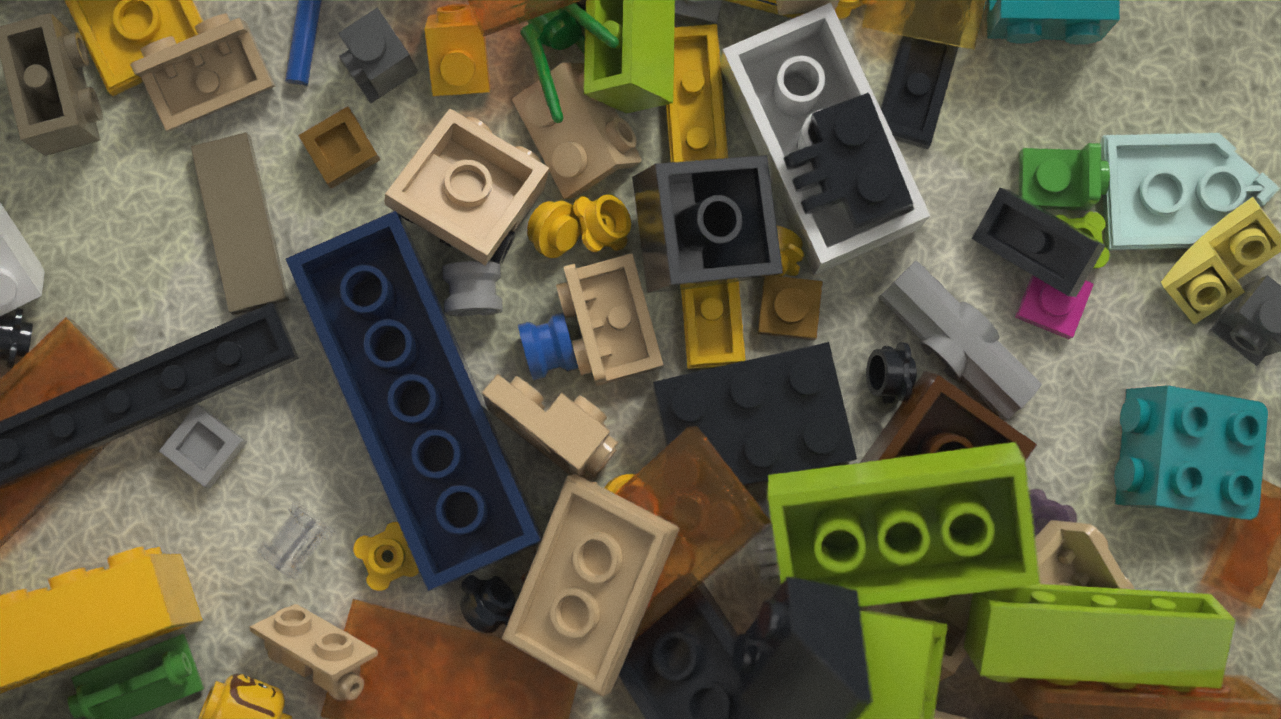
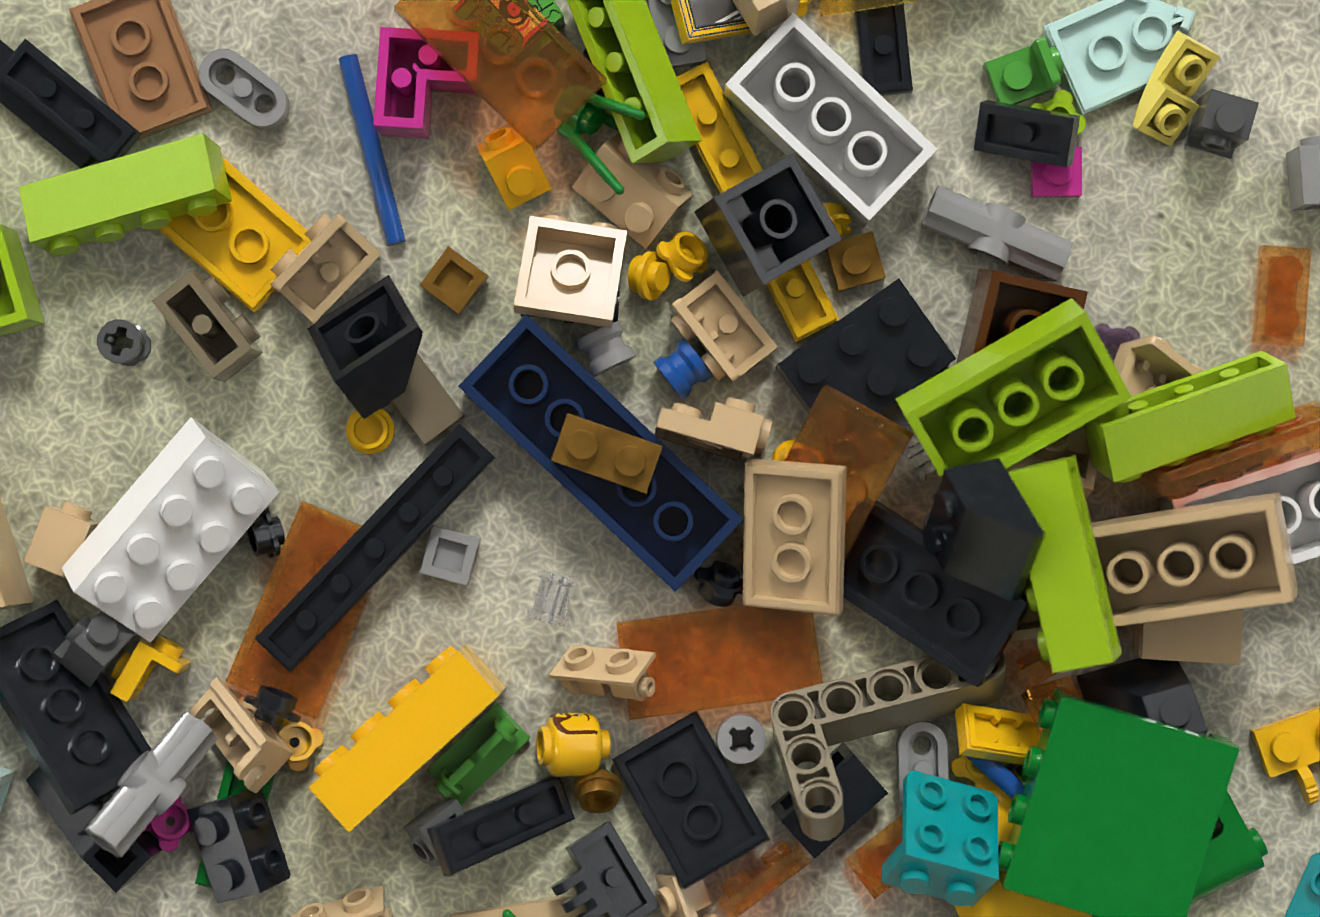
camera: 25 degrees left, 5 degrees up
(178, 272) = (372, 433): none -> yellow plate
(208, 179) = (370, 346): none -> black slope
(371, 551) = (641, 579): yellow plate -> none
(375, 56) = (452, 198): dark grey brick -> none
(416, 401) = (606, 453): none -> pearl gold plate
(851, 164) = (862, 134): black hinge -> none
(891, 373) = (954, 280): black plate -> none
(1191, 452) = (1206, 247): teal bracket -> none

